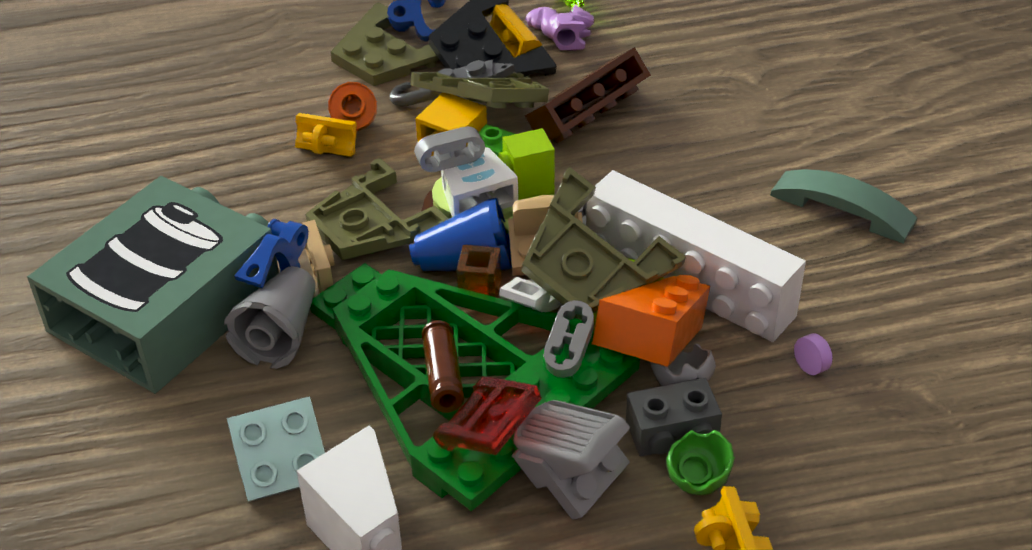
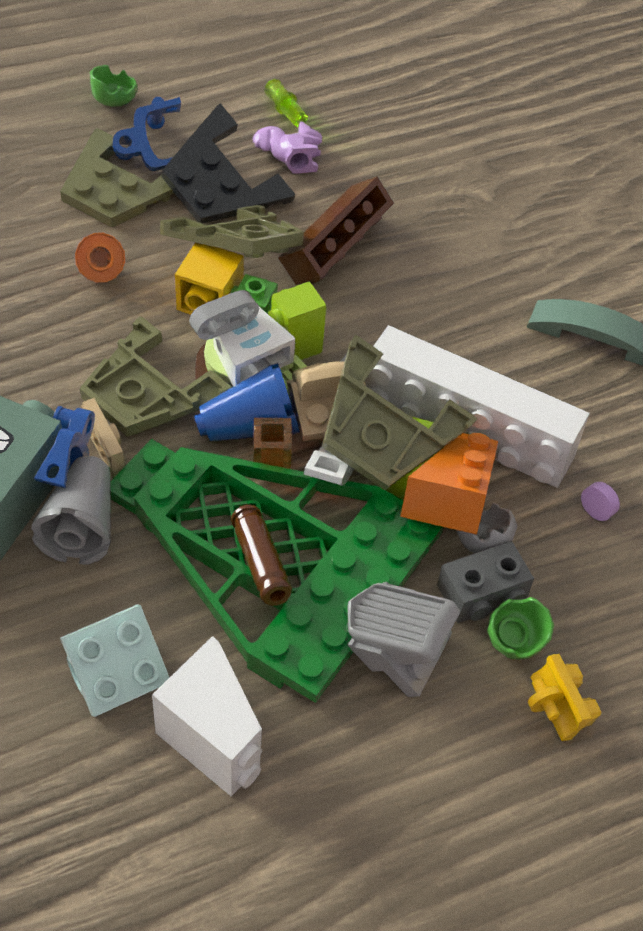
camera: 15 degrees left, 10 degrees up
(325, 134) = (78, 292): yellow hips -> none
(475, 69) = (213, 213): dark grey plate -> none
(488, 416) = (330, 612): clear red plate -> none
(513, 31) = (246, 158): yellow brick -> none
(560, 336) = (372, 514): light grey beam -> none

